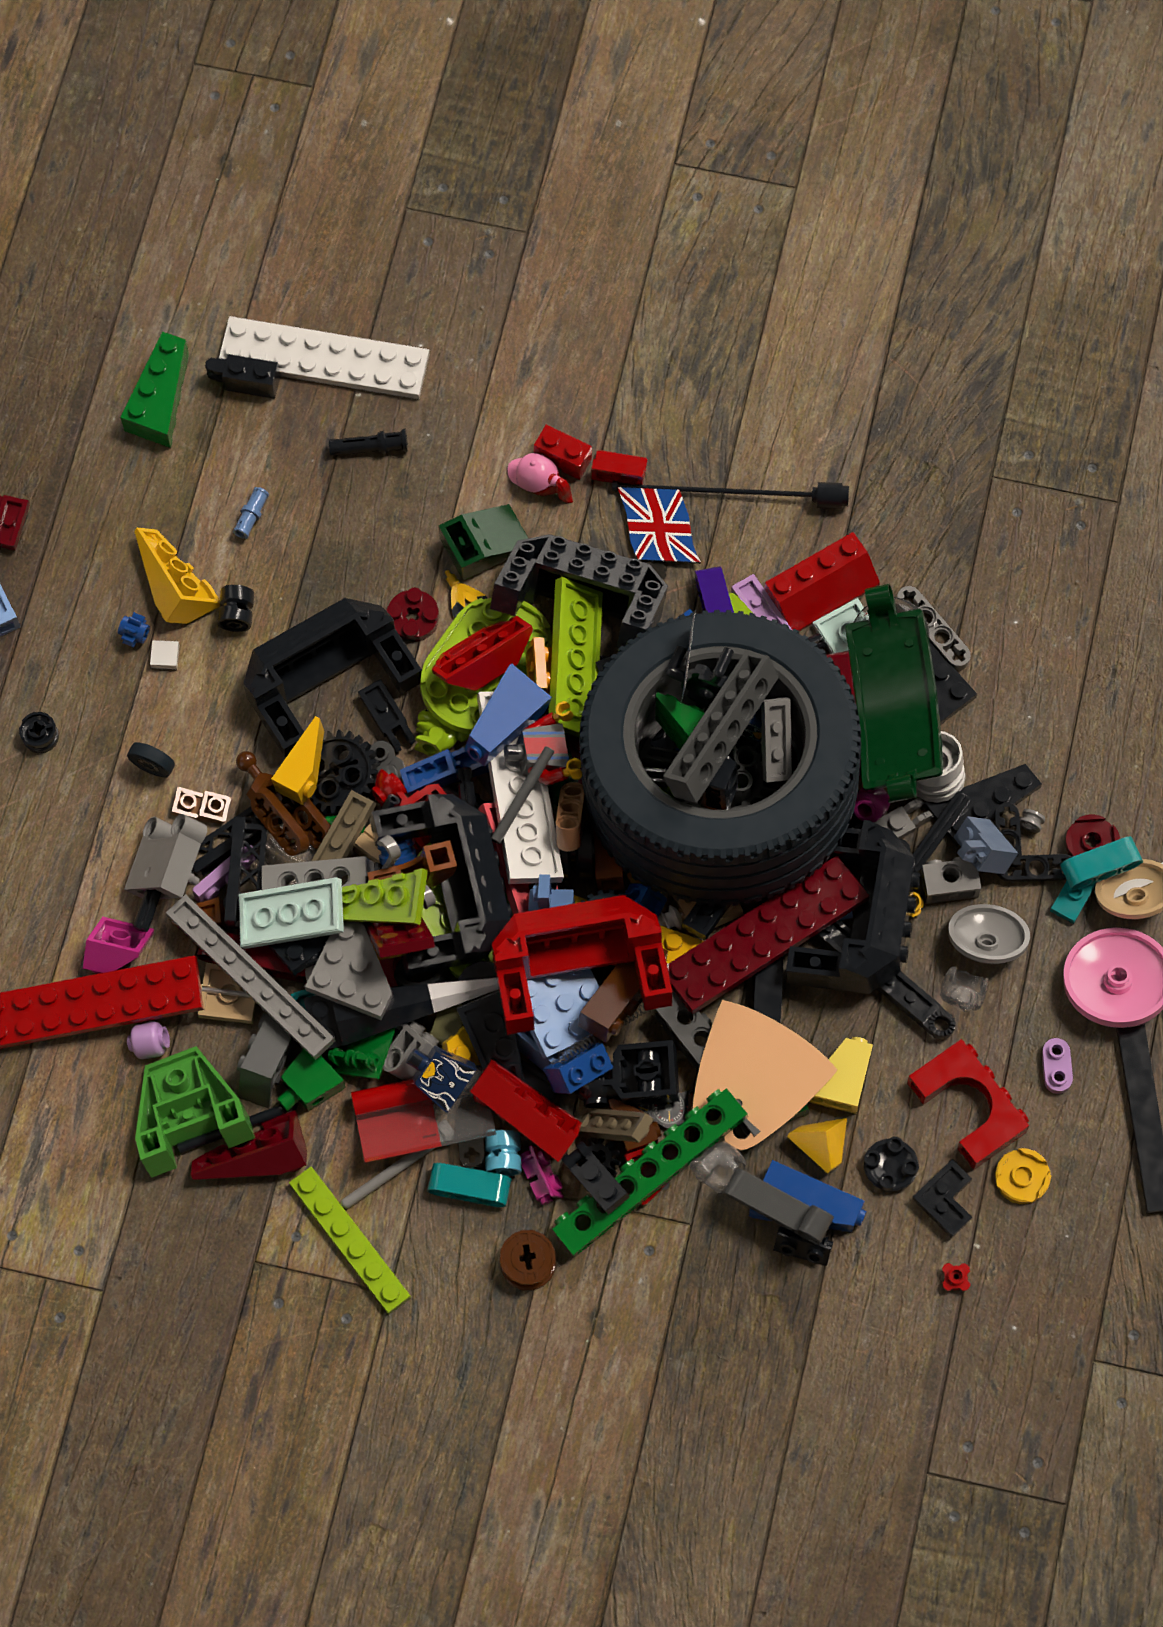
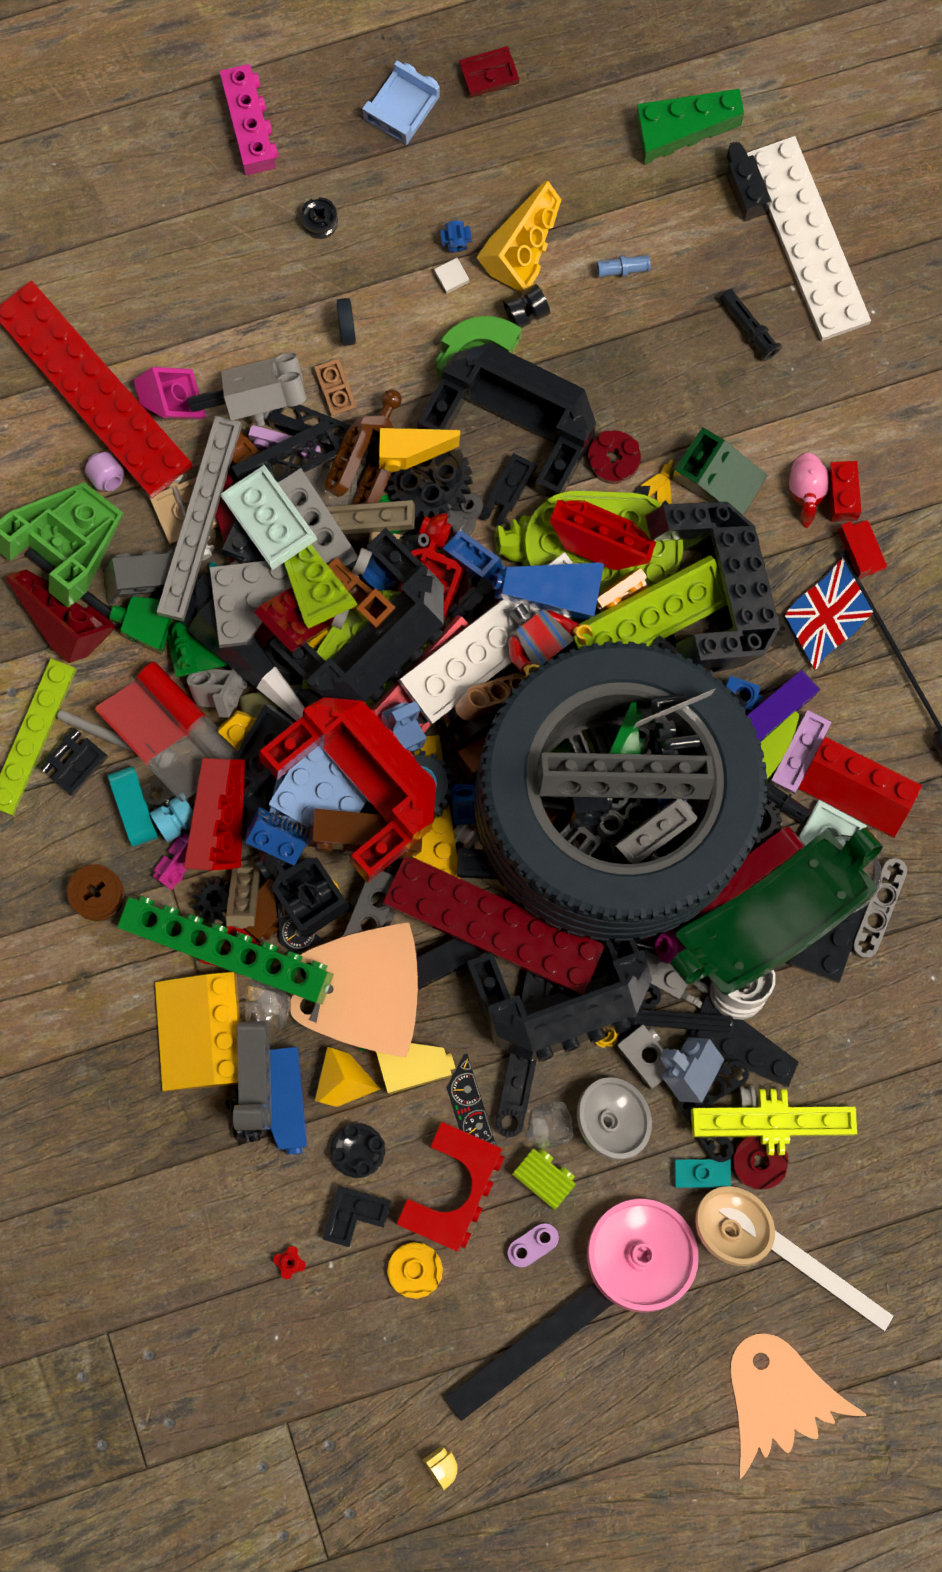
camera: 60 degrees right, 10 degrees up
(230, 663) = (478, 332): none -> bright green arch
(404, 1213) = (78, 767): none -> black plate
(441, 1075) = (203, 726): dark blue torso -> none
(522, 795) = (482, 644): dark grey bar -> none
(596, 1178) = (189, 907): black plate -> none
(707, 1239) = (198, 1031): none -> yellow slope
(900, 1051) = (468, 1102): none -> black sticker
(1006, 1022) = (544, 1178): none -> lime brick
(1065, 809) = (774, 1121): none -> neon yellow hinge
(1101, 863) = (739, 1182): teal beam -> none

